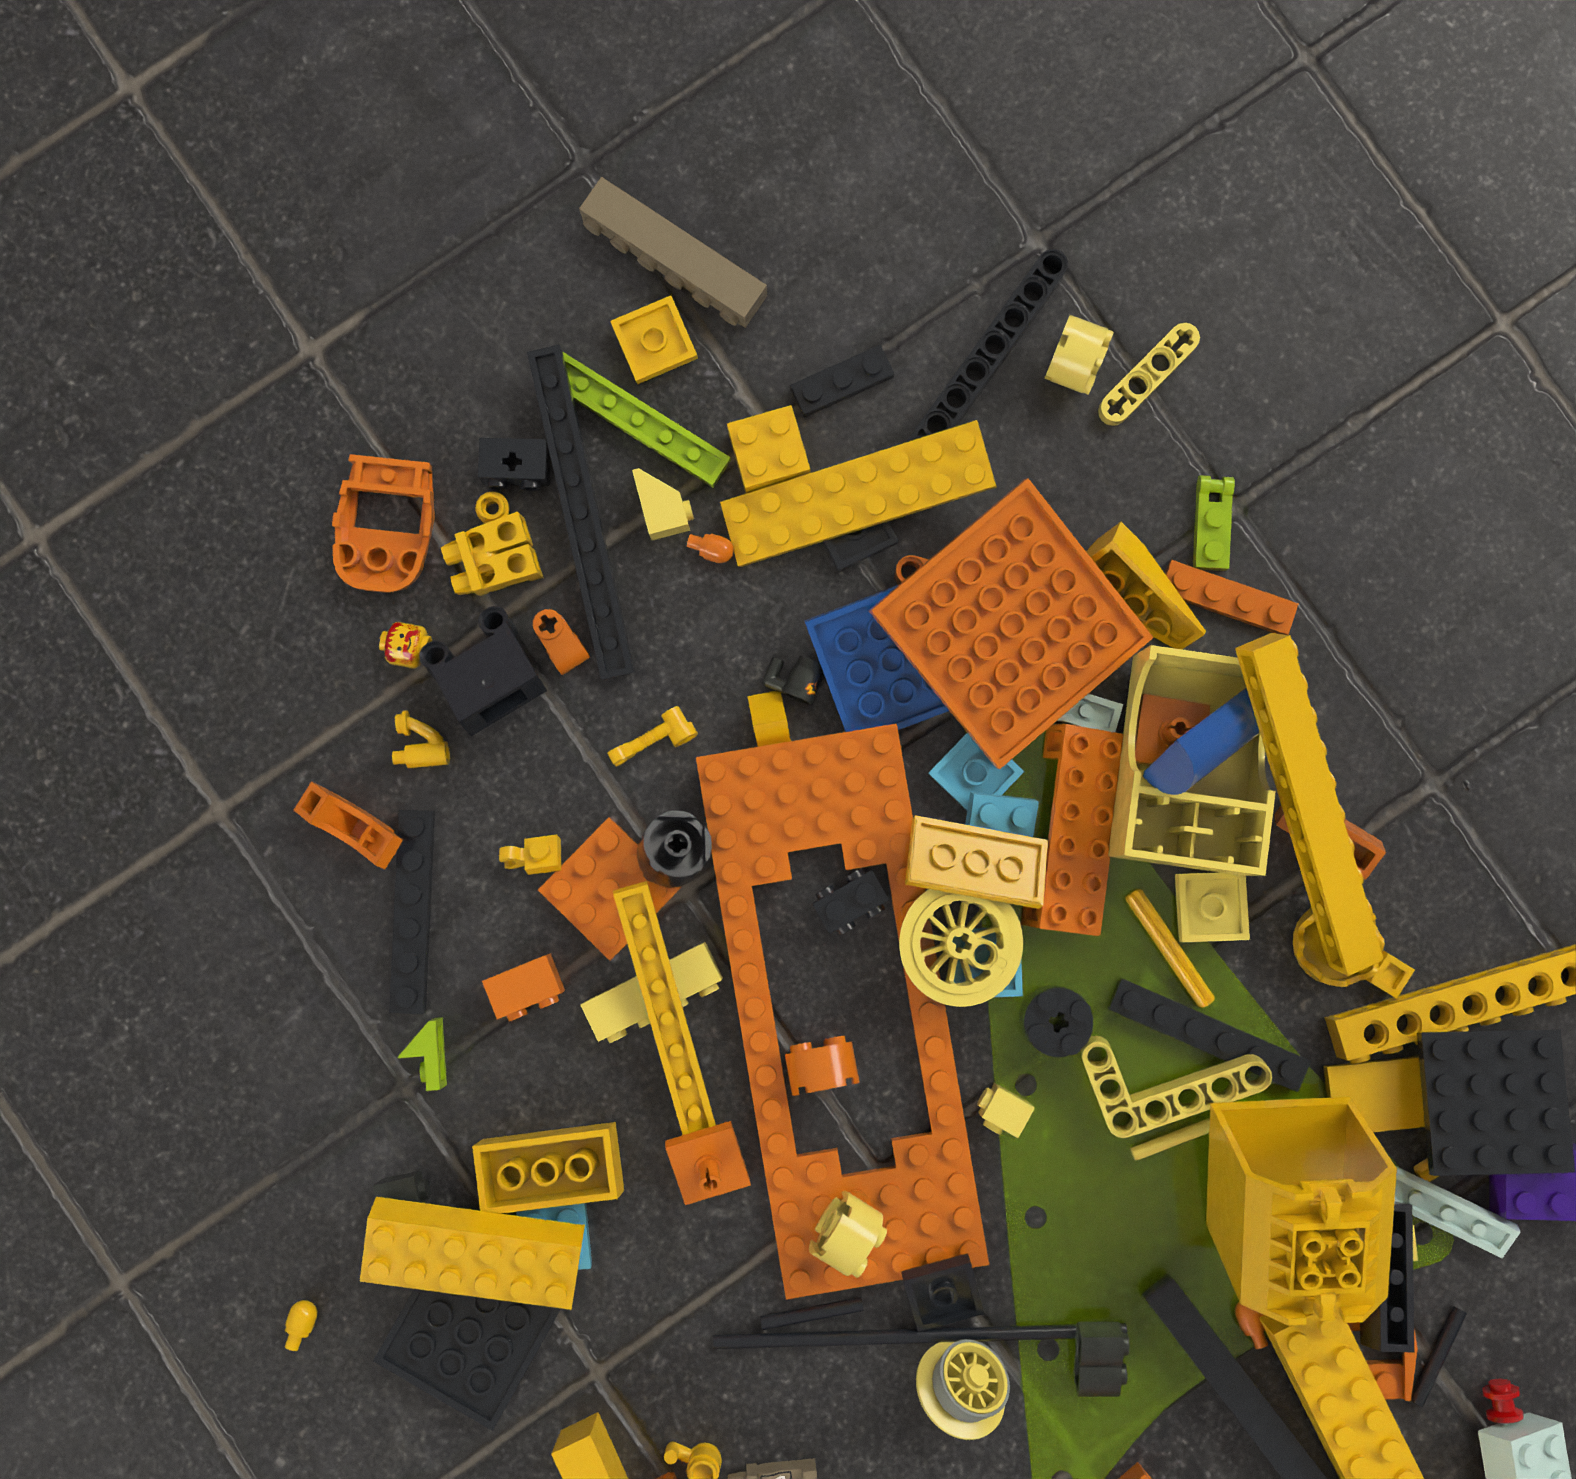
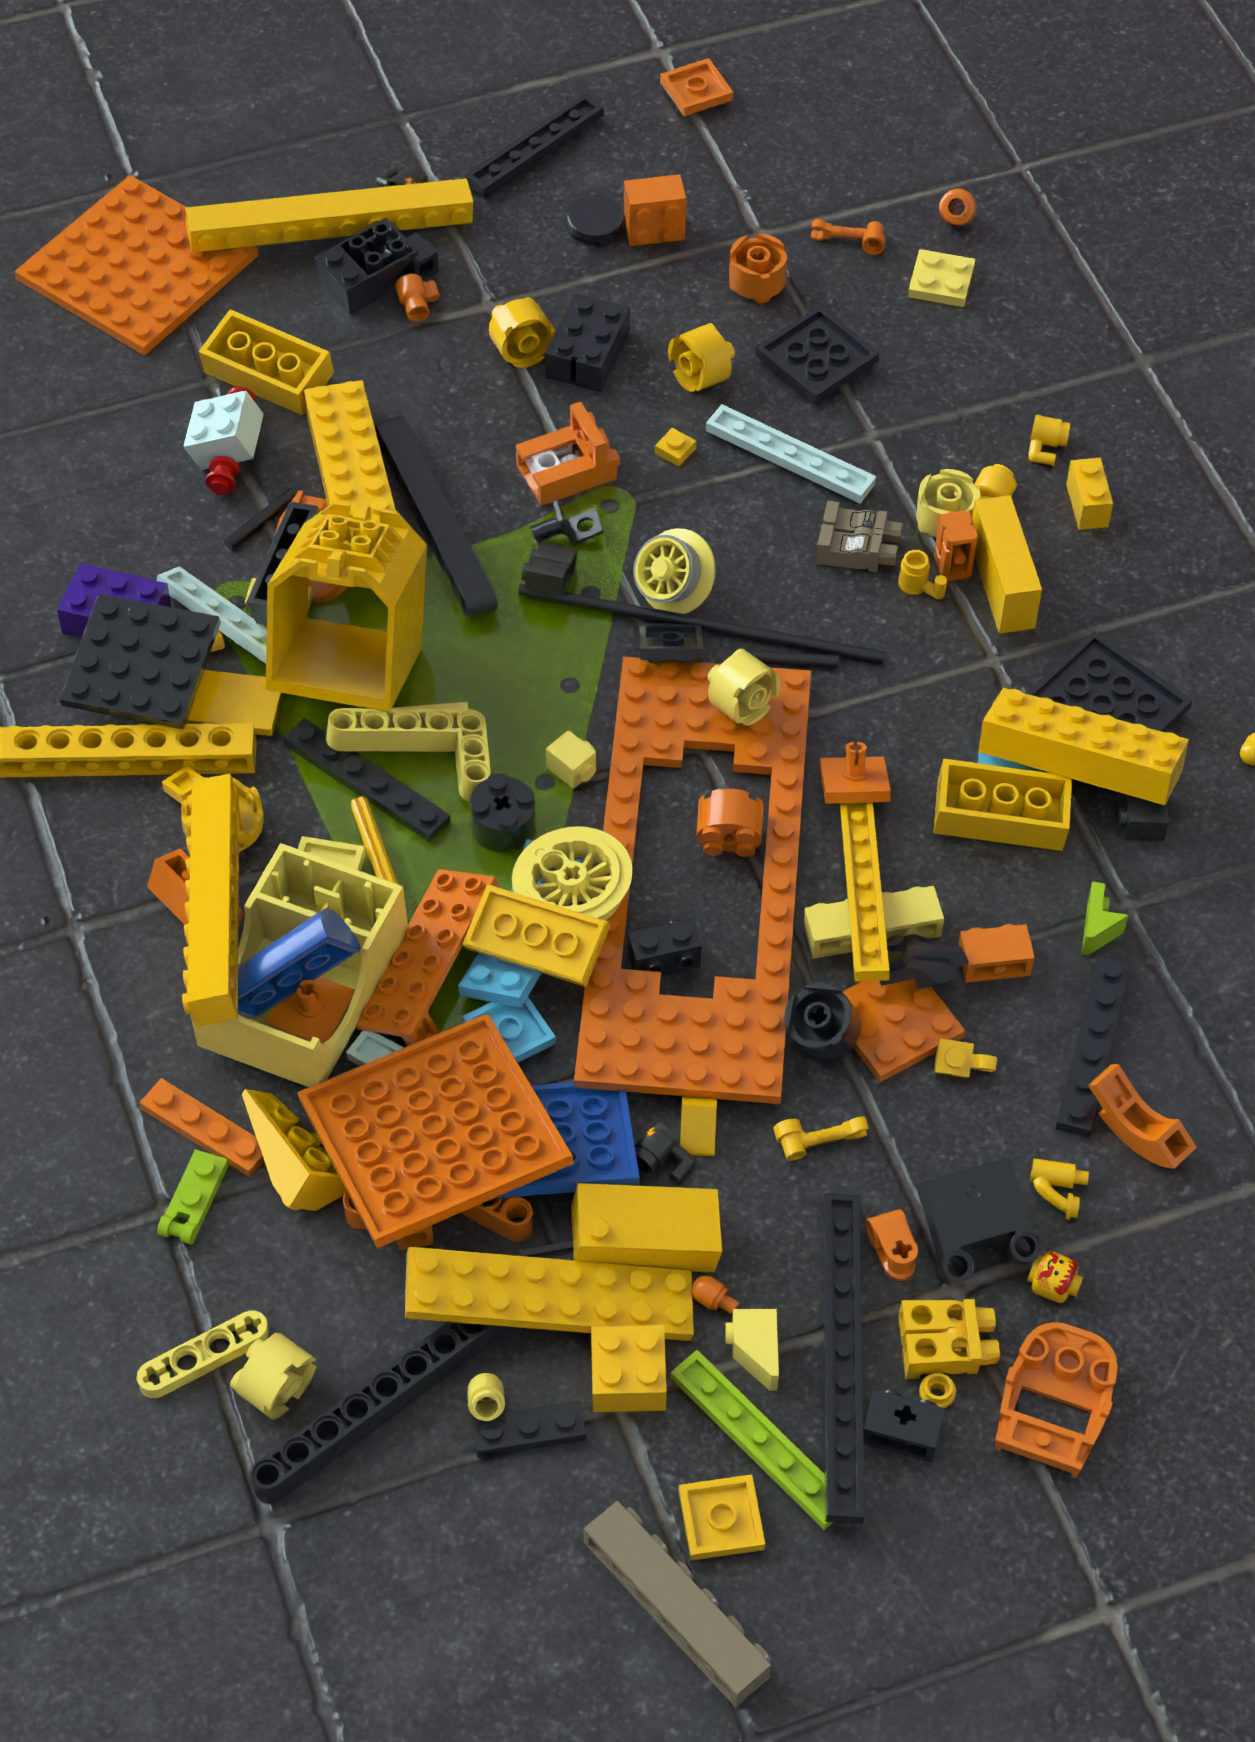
camera: 170 degrees left, 30 degrees down
(592, 950) = (922, 959): none -> black plate
(787, 585) = (647, 1226): none -> yellow brick
(886, 387) = (486, 1396): none -> light yellow brick
(1099, 1430) = (568, 527): none -> black bracket

